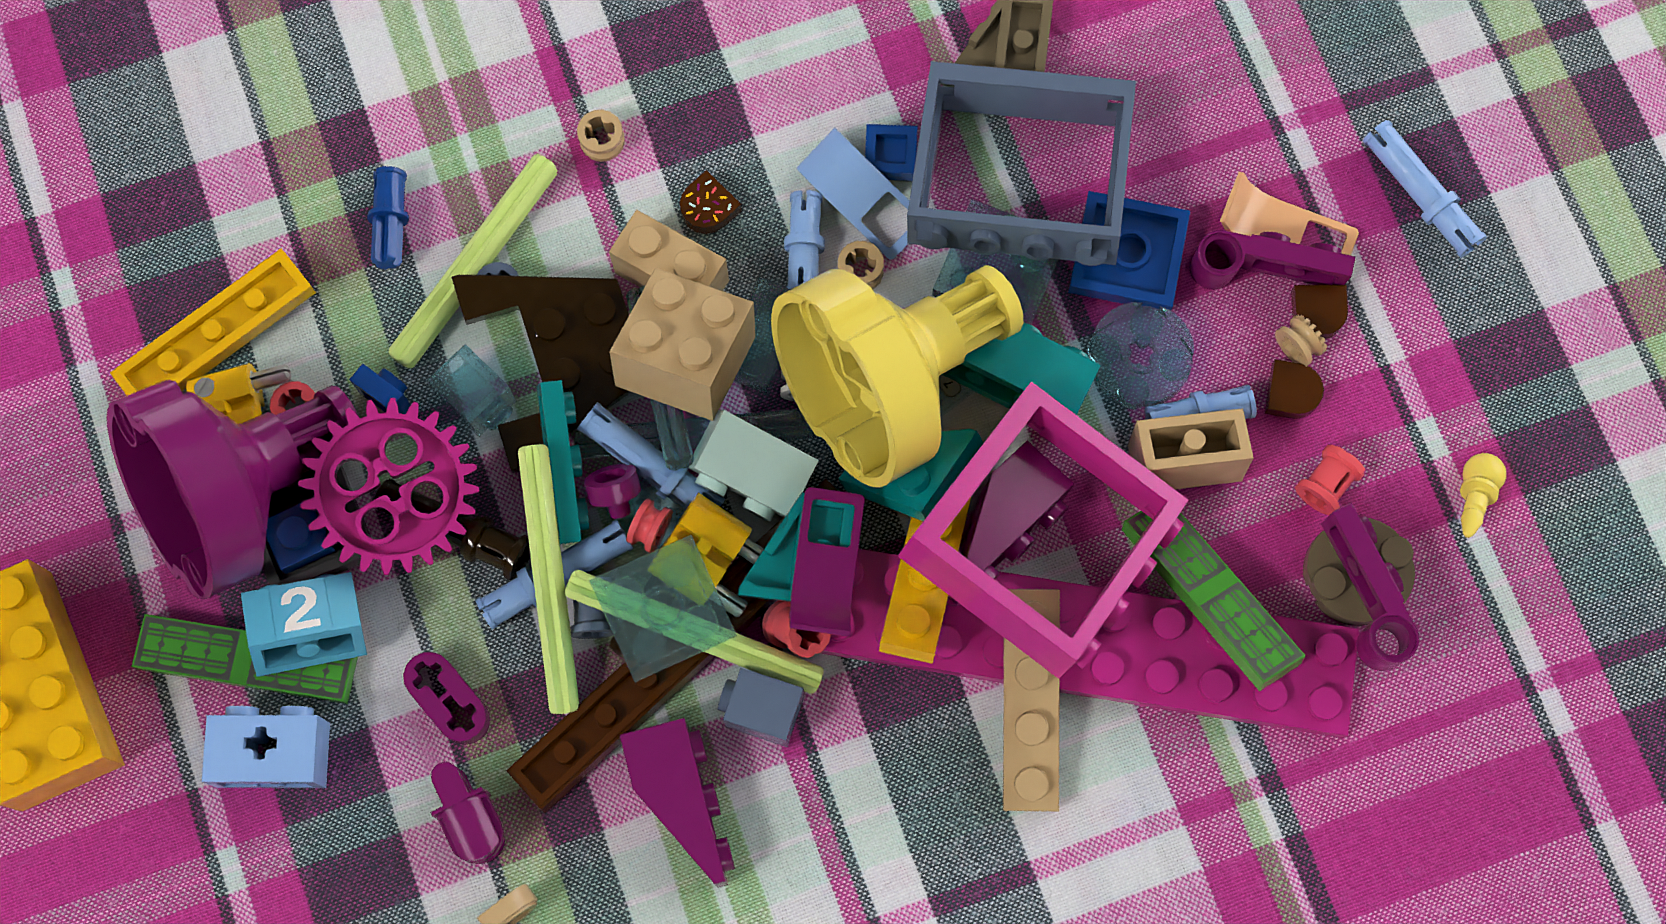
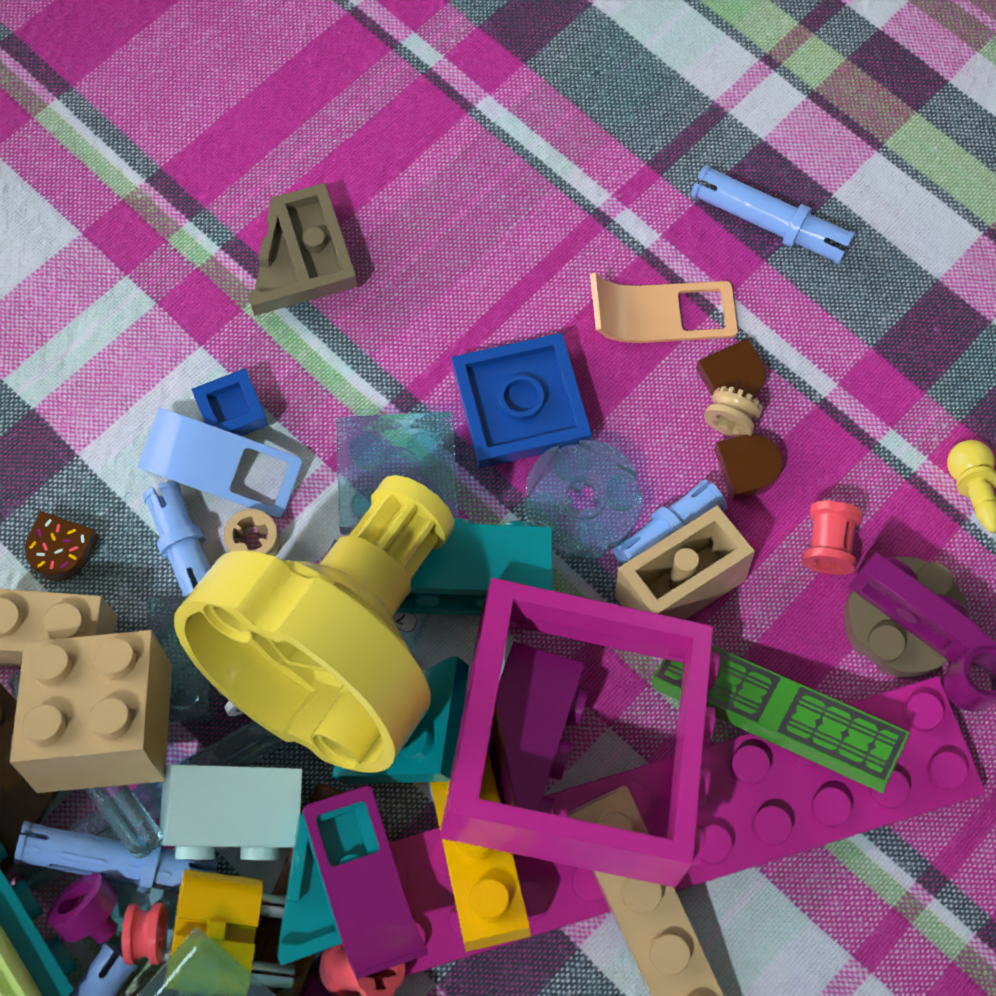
camera: 30 degrees left, 5 degrees down
(1024, 96) = (348, 289): sand blue window -> none
(1271, 255) = (662, 341): magenta plate -> none

